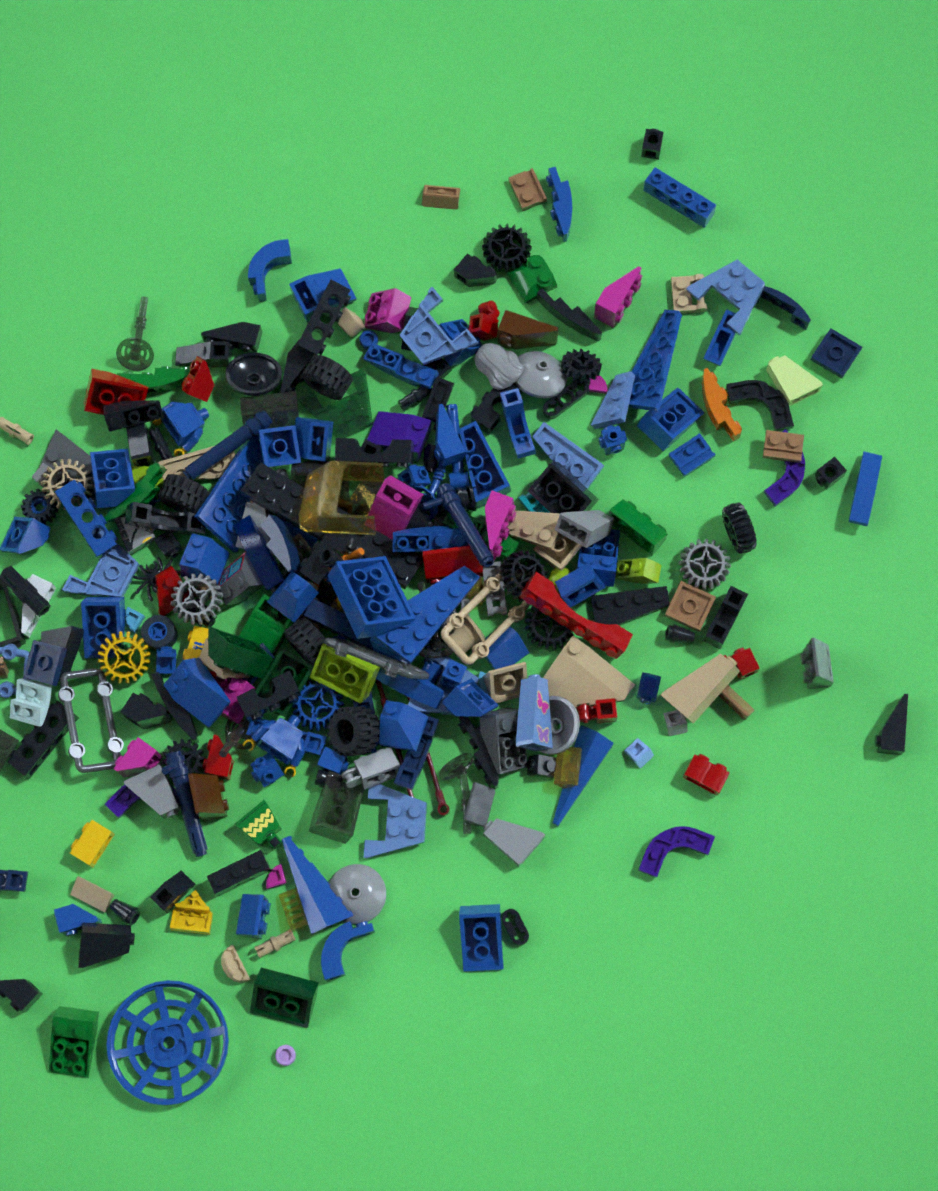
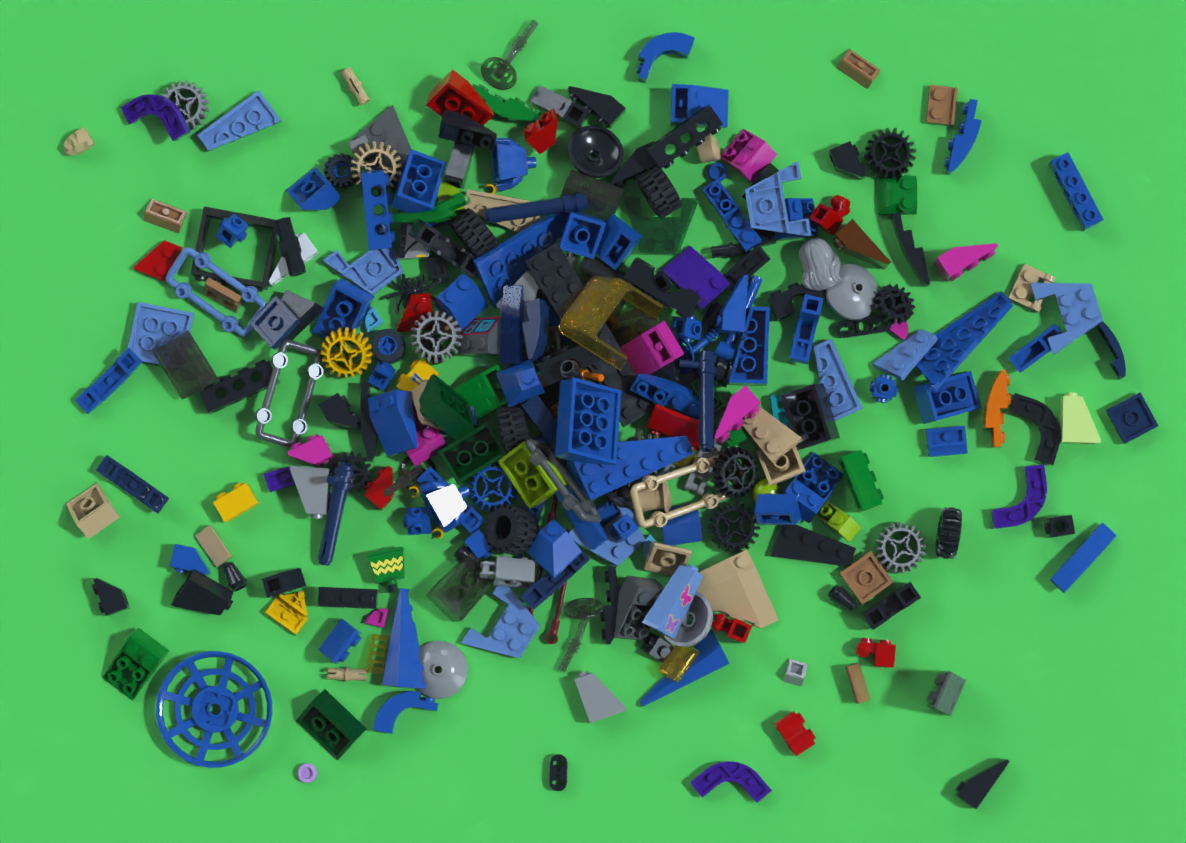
camera: 25 degrees right, 10 degrees up
(30, 702) = (245, 349): light aqua slope -> none
(160, 444) = (478, 172): black pin -> none
(208, 796) = (356, 518): reddish brown slope -> none
(233, 966) = (302, 674): tan plate -> none
(255, 706) = (470, 463): black arch -> none
(469, 700) = (625, 559): blue slope -> none
(479, 804) = (584, 652): dark grey slope -> none
(481, 937) = (524, 766): blue slope -> none
(543, 595) = (740, 501): red arch -> none
(584, 526) = (811, 458): light grey slope -> none
(639, 753) = (748, 681): light blue slope -> none
(648, 688) = (787, 630): clear blue brick -> none
(652, 150) = (1075, 130): black brick -> none
(700, 688) = (832, 657): tan slope -> none
(783, 446) = (1032, 479): medium nougat plate -> none

